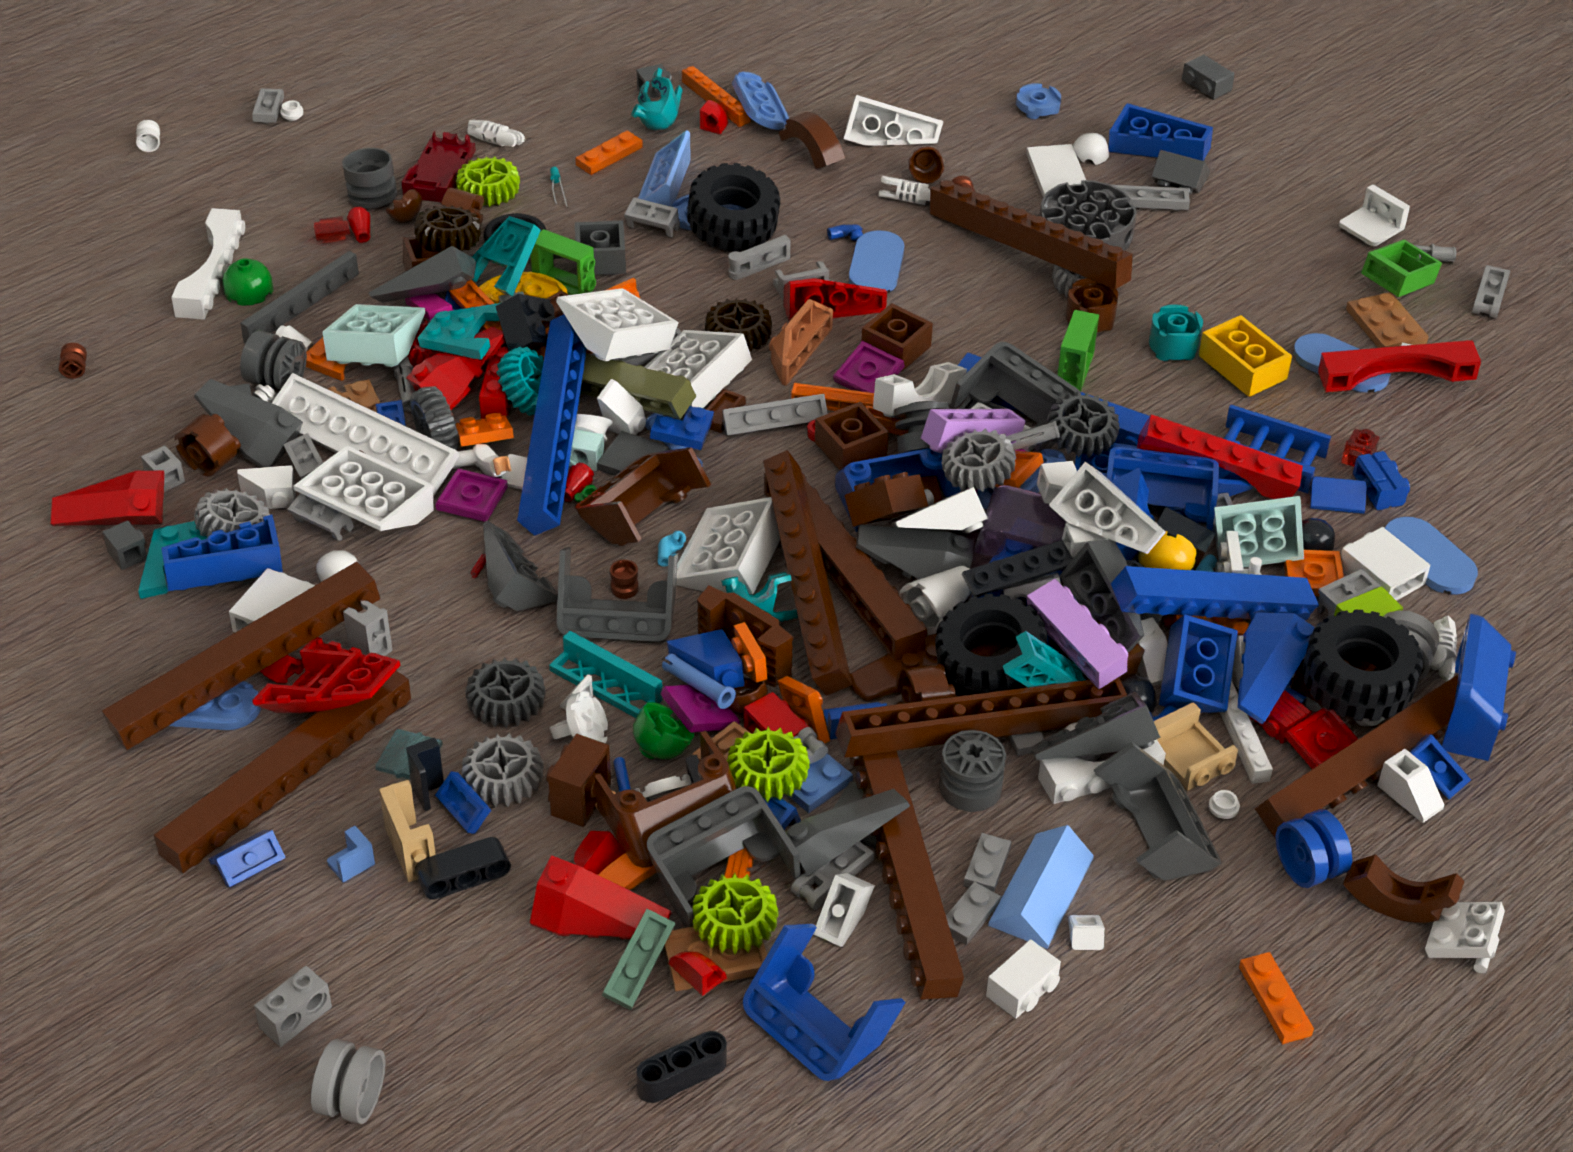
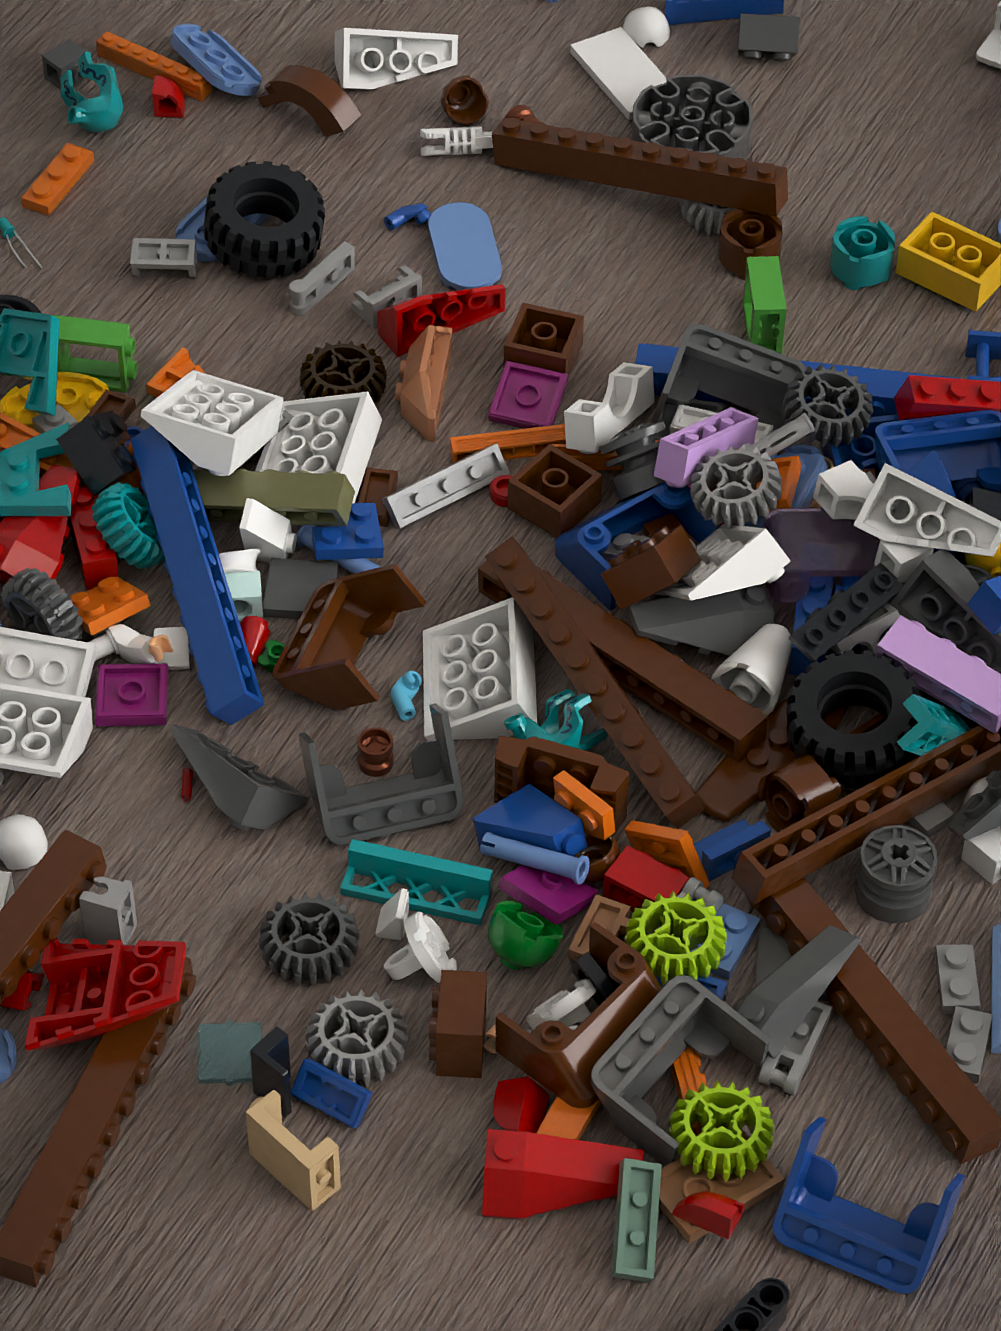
camera: 20 degrees left, 5 degrees up
(248, 857) = (108, 1241): panel -> none
(354, 858) = (235, 1201): medium blue panel -> none
(462, 868) = (373, 1174): black beam -> none
(607, 243) = (127, 303): dark grey brick -> none
(621, 774) = (502, 1005): blue bar -> none
(667, 171) = (146, 191): light blue slope -> none
(843, 908) = (830, 1084): white slope -> none
(1157, 197) = (755, 74): light grey plate -> none

